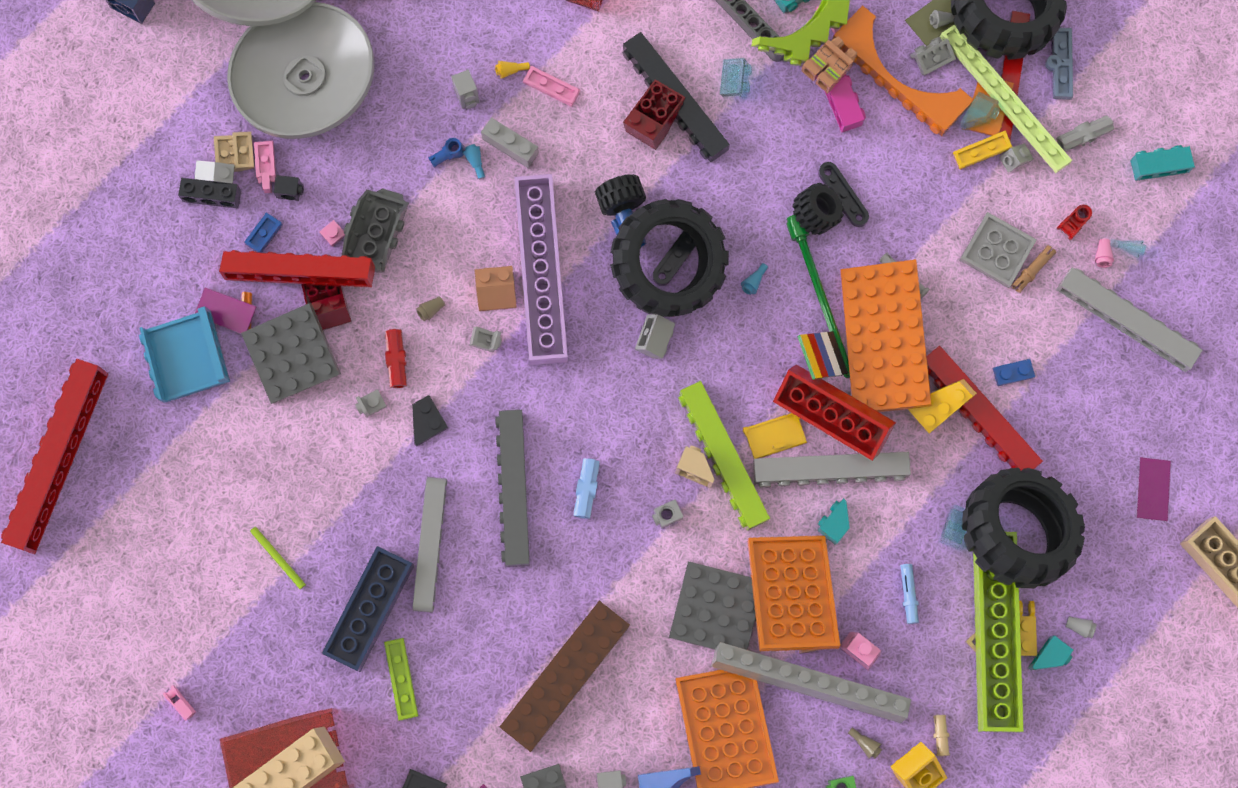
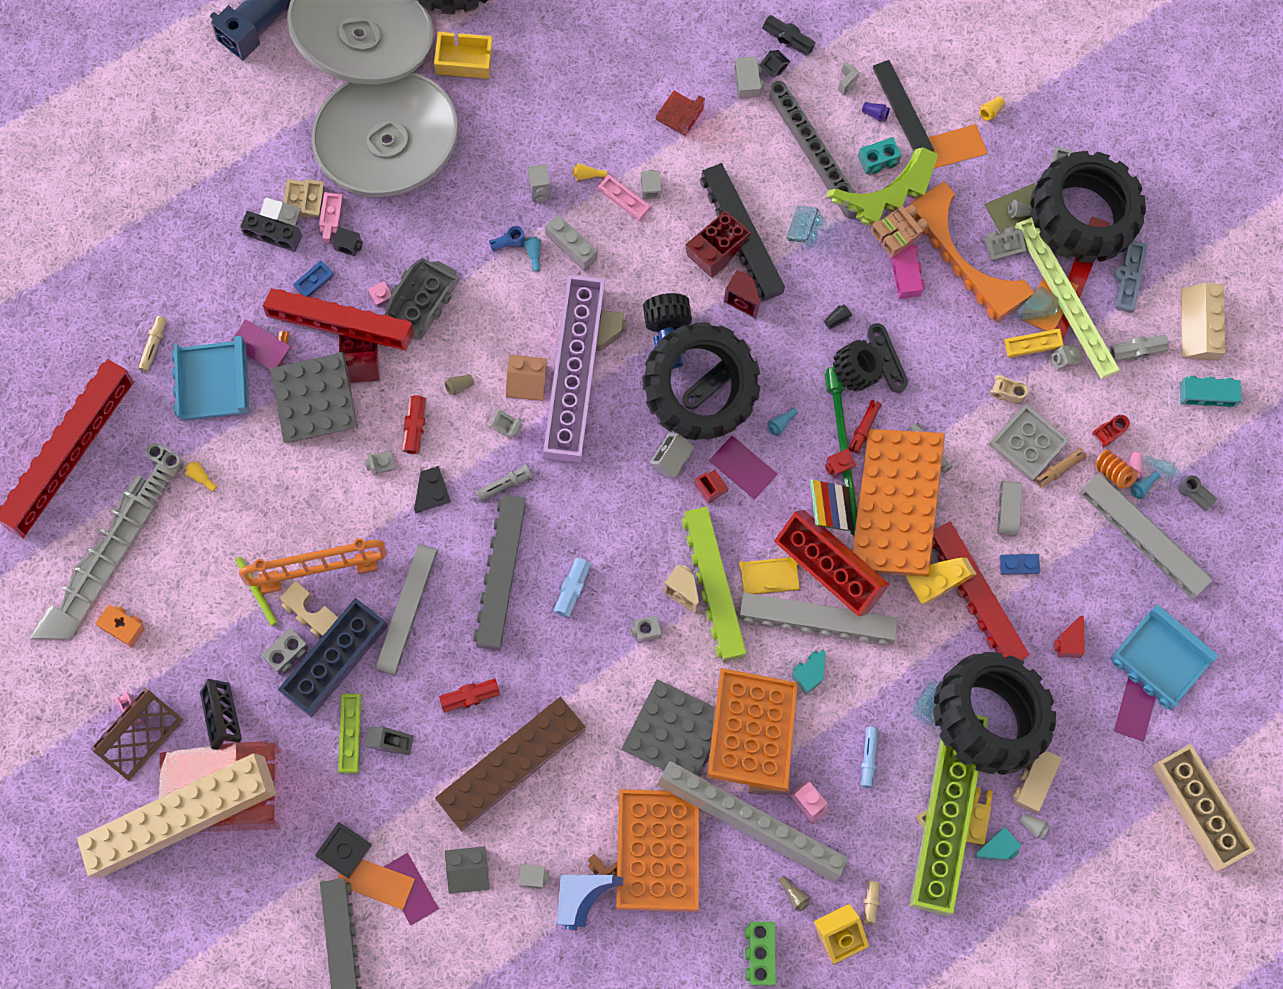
camera: 10 degrees right, 5 degrees down
(117, 563) = (98, 566): none -> light grey piece
(118, 323) = (155, 336): none -> tan pin
(162, 626) = (109, 623): none -> orange brick
(176, 720) = (126, 720): none -> reddish brown fence
(192, 452) = (197, 473): none -> yellow cone
(264, 689) = (214, 712): none -> black fence
(289, 544) = (271, 582): none -> orange bar
(315, 609) = (281, 648): none -> light grey brick
(319, 559) = (295, 600): none -> tan arch
(441, 678) = (388, 740): none -> dark grey slope
(503, 389) = (514, 481): none -> light grey pin
(509, 617) = (469, 695): none -> red piece
(567, 221) = (610, 328): none -> dark tan slope
(575, 67) = (650, 184): none -> light grey brick
(671, 759) = (597, 867): none -> dark orange bracket
(690, 160) = (742, 294): none -> dark red slope
(699, 358) = (711, 486): none -> red piece
(726, 332) = (743, 467): none -> magenta window
(787, 163) = (838, 317): none -> black cone
(820, 309) = (839, 463): none -> red bracket
(834, 274) = (861, 433): none -> red pin
(963, 202) = (1007, 390): none -> tan piece
(993, 317) = (1010, 508): none -> light grey beam
(1075, 585) = (1036, 782): none -> tan brick
(1079, 437) = (1071, 641): none -> red slope
(1088, 260) = (1116, 470): none -> orange piece
(1115, 272) = (1141, 487): none -> dark azure cone
(1141, 94) = (1203, 321): none -> tan slope
(1169, 435) = (1163, 657): none -> dark azure panel
(1170, 267) = (1198, 493): none -> dark grey piece

